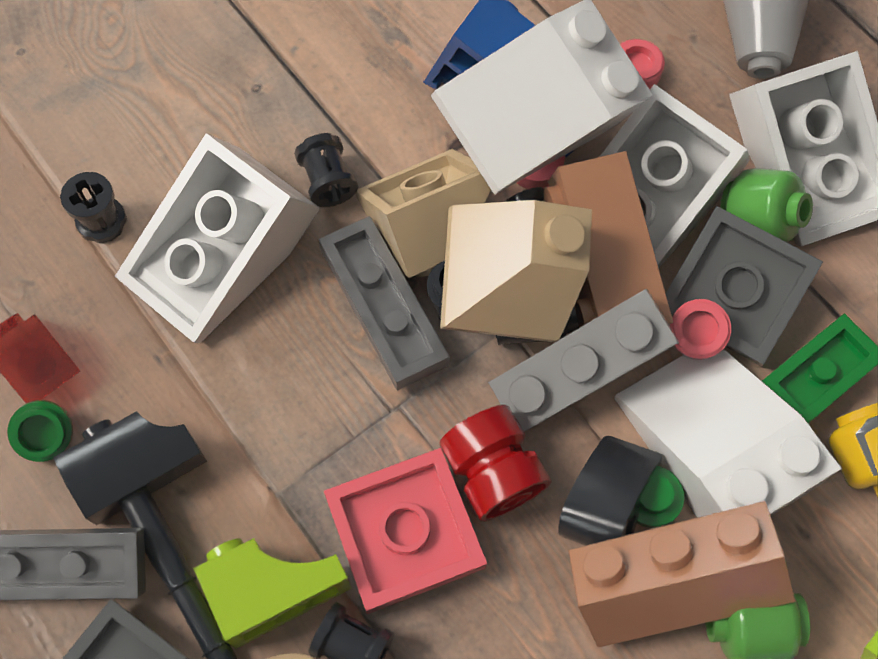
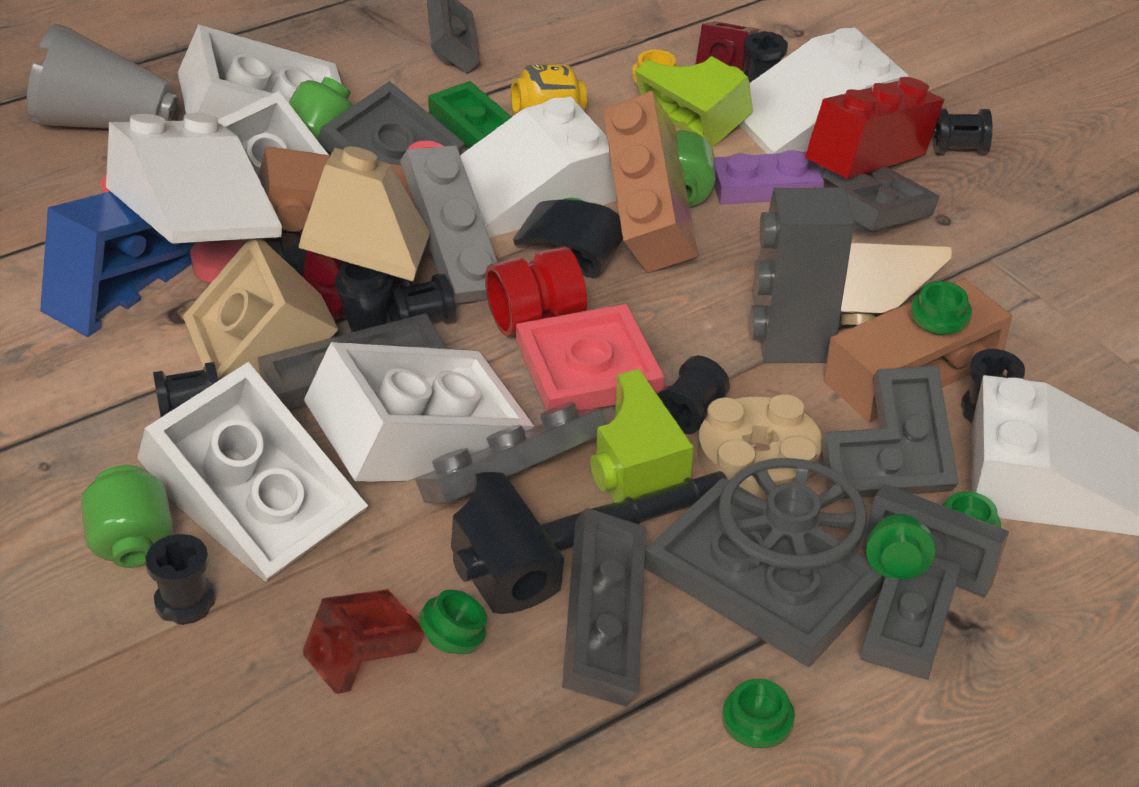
camera: 85 degrees left, 25 degrees down
(159, 151) = (125, 515): none -> bright green head
(251, 464) = (510, 451): none -> flat silver plate
(315, 371) = (406, 406): none -> white slope
(475, 371) = (430, 297): none -> black bush

